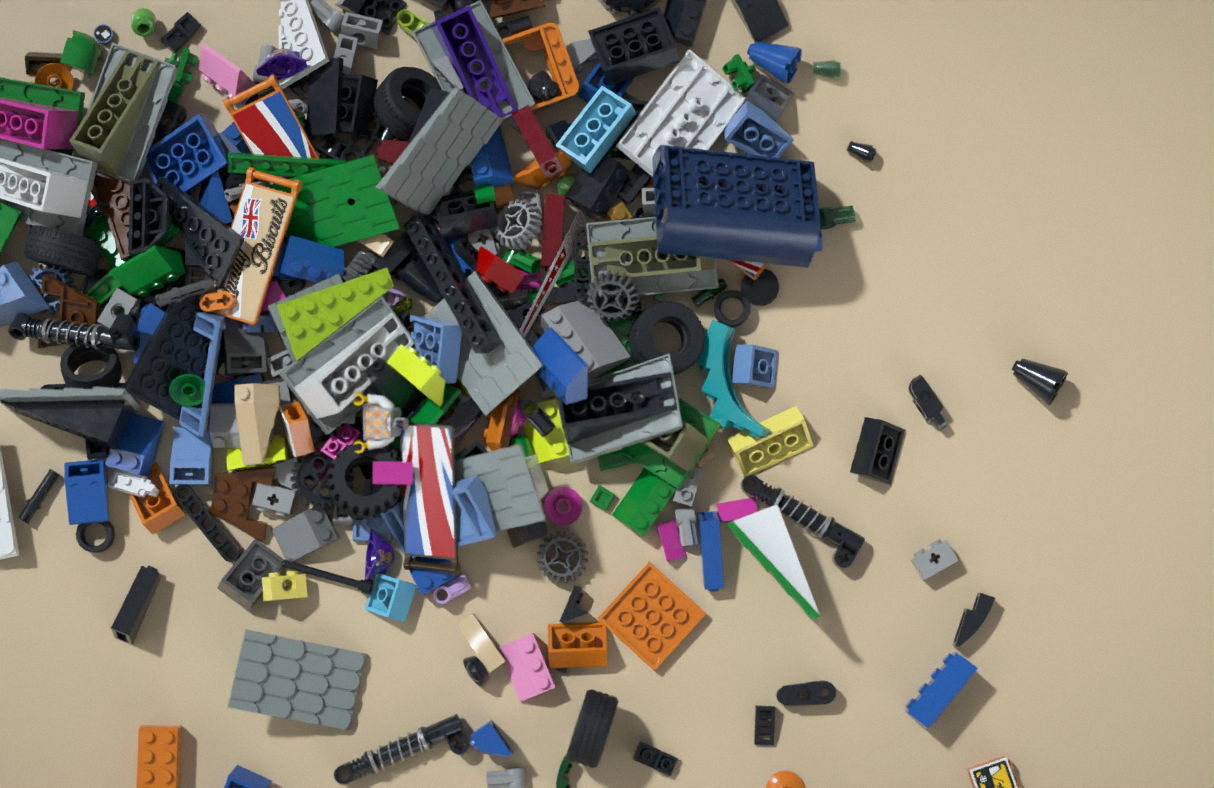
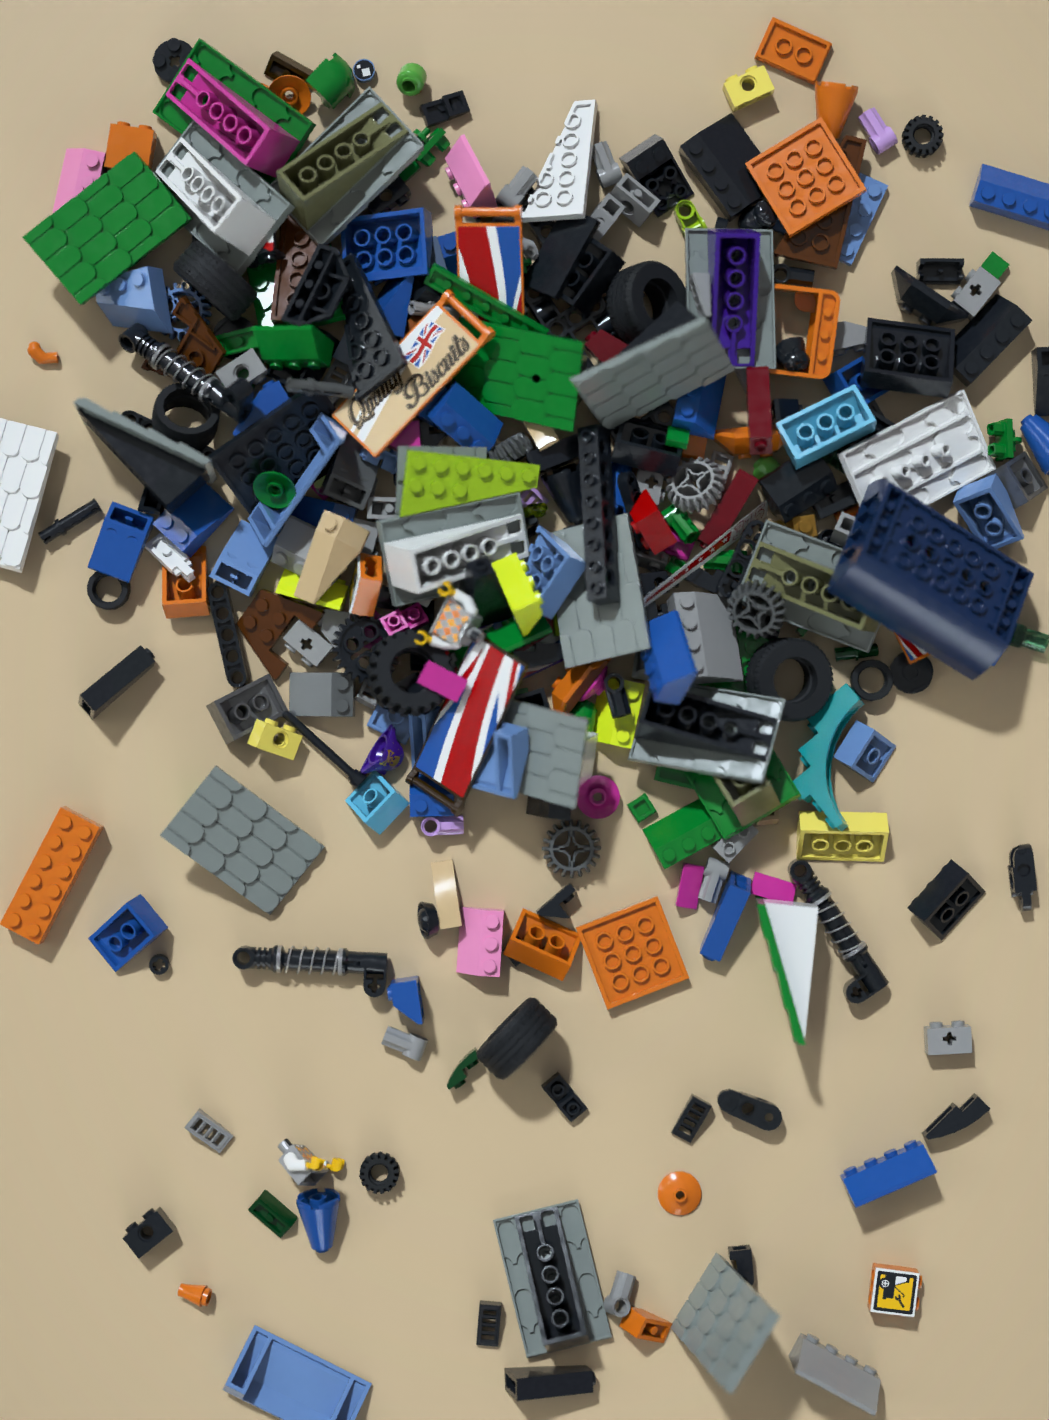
camera: 30 degrees right, 5 degrees up
(217, 298) = (350, 410): orange beam -> none
(282, 64) = (534, 196): dark purple hat -> none

